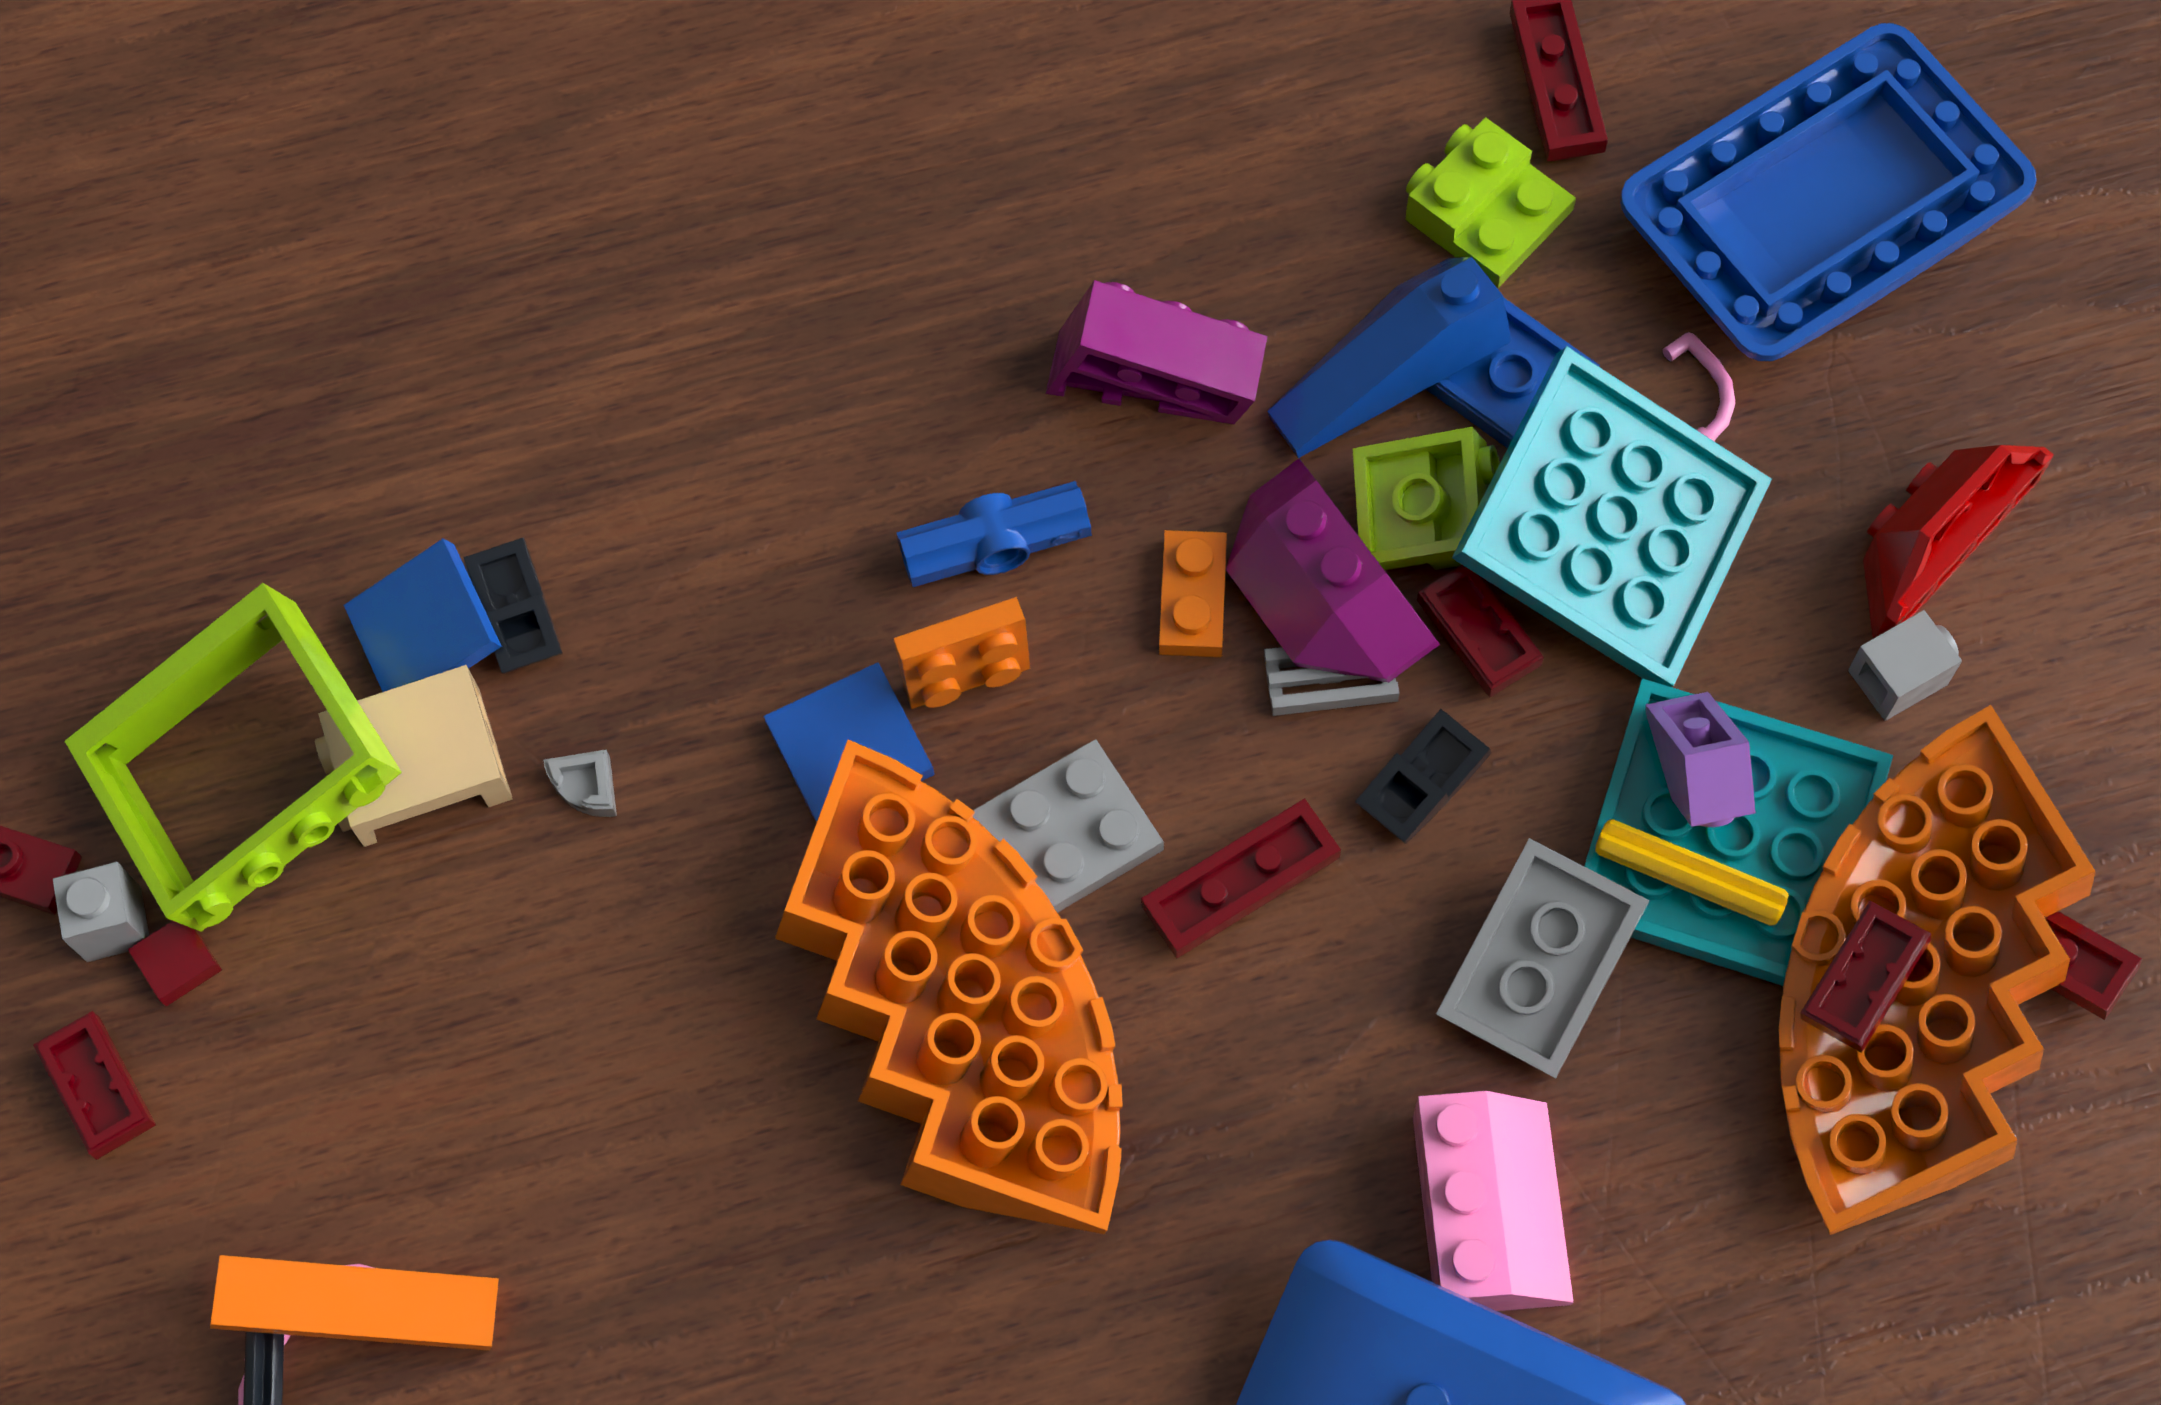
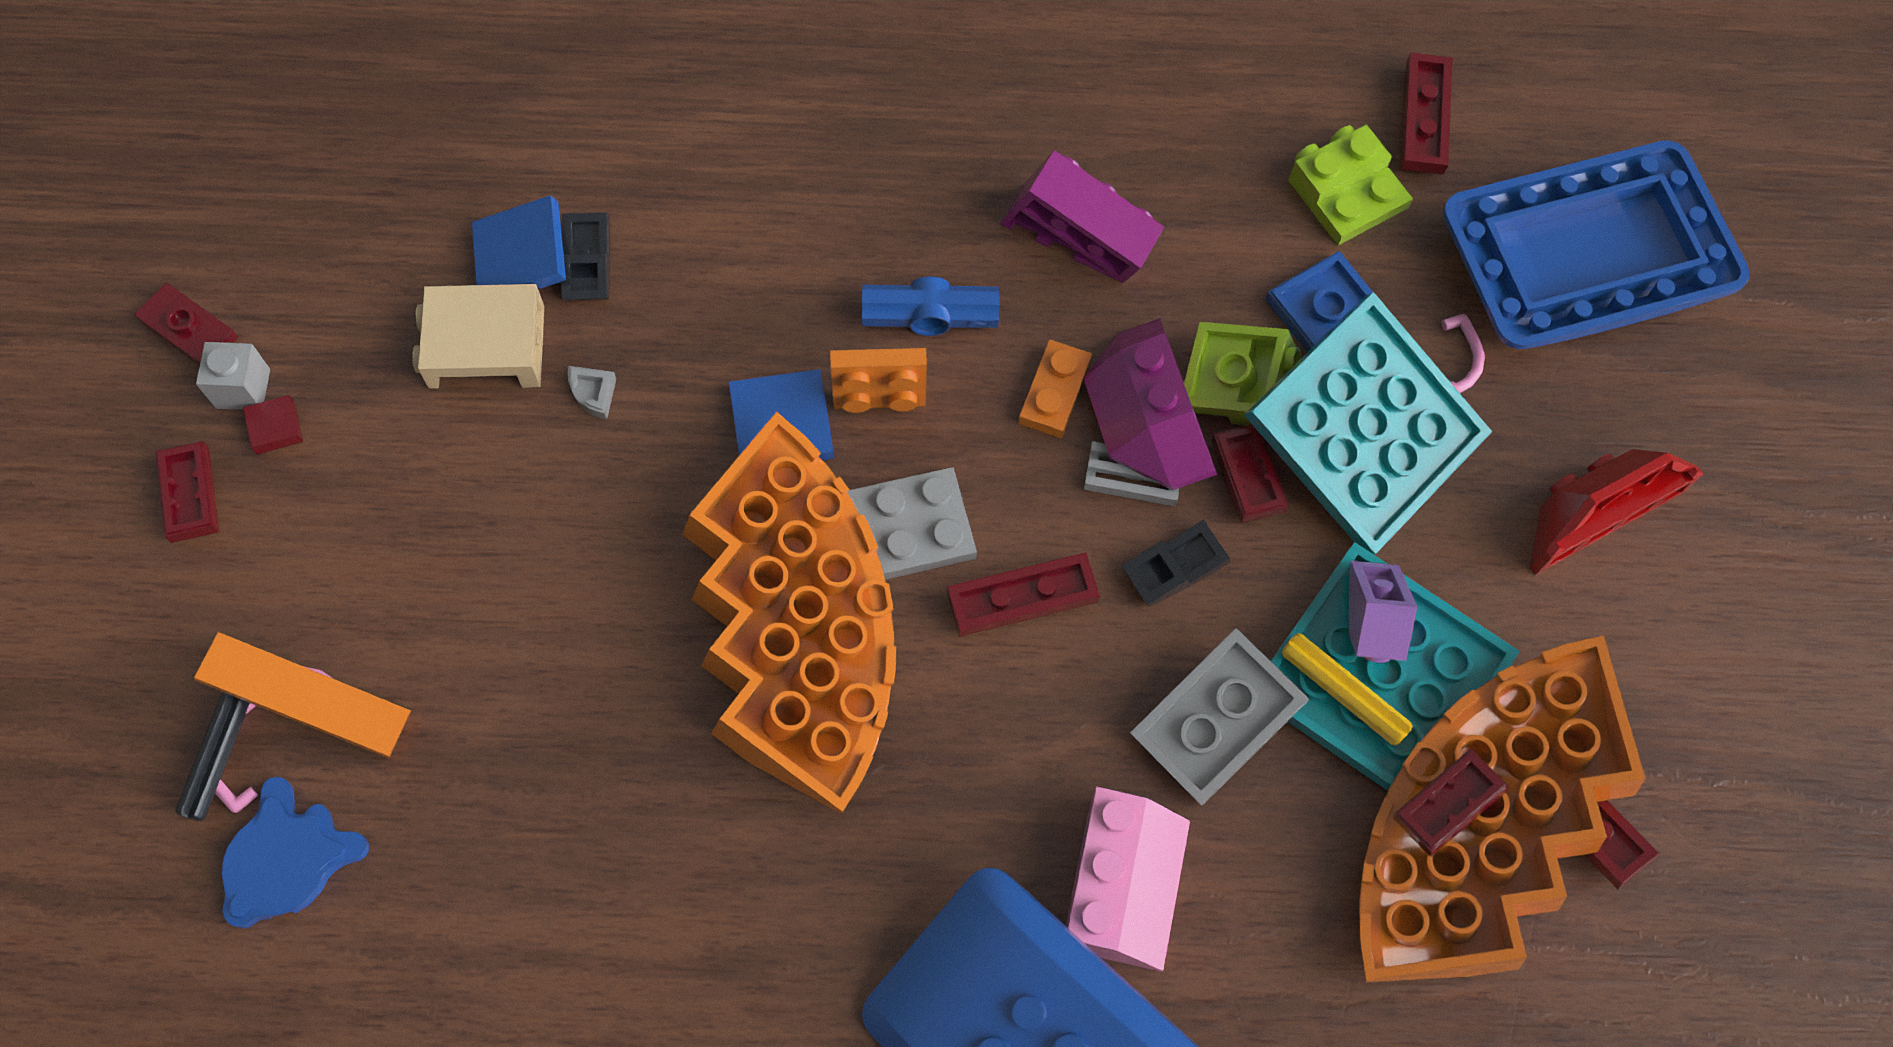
camera: 10 degrees right, 0 degrees up
(175, 692) = (329, 246): lime window -> none
(1397, 350) = (1256, 265): blue wedge -> none
(1905, 664) = (1548, 590): light grey brick -> none

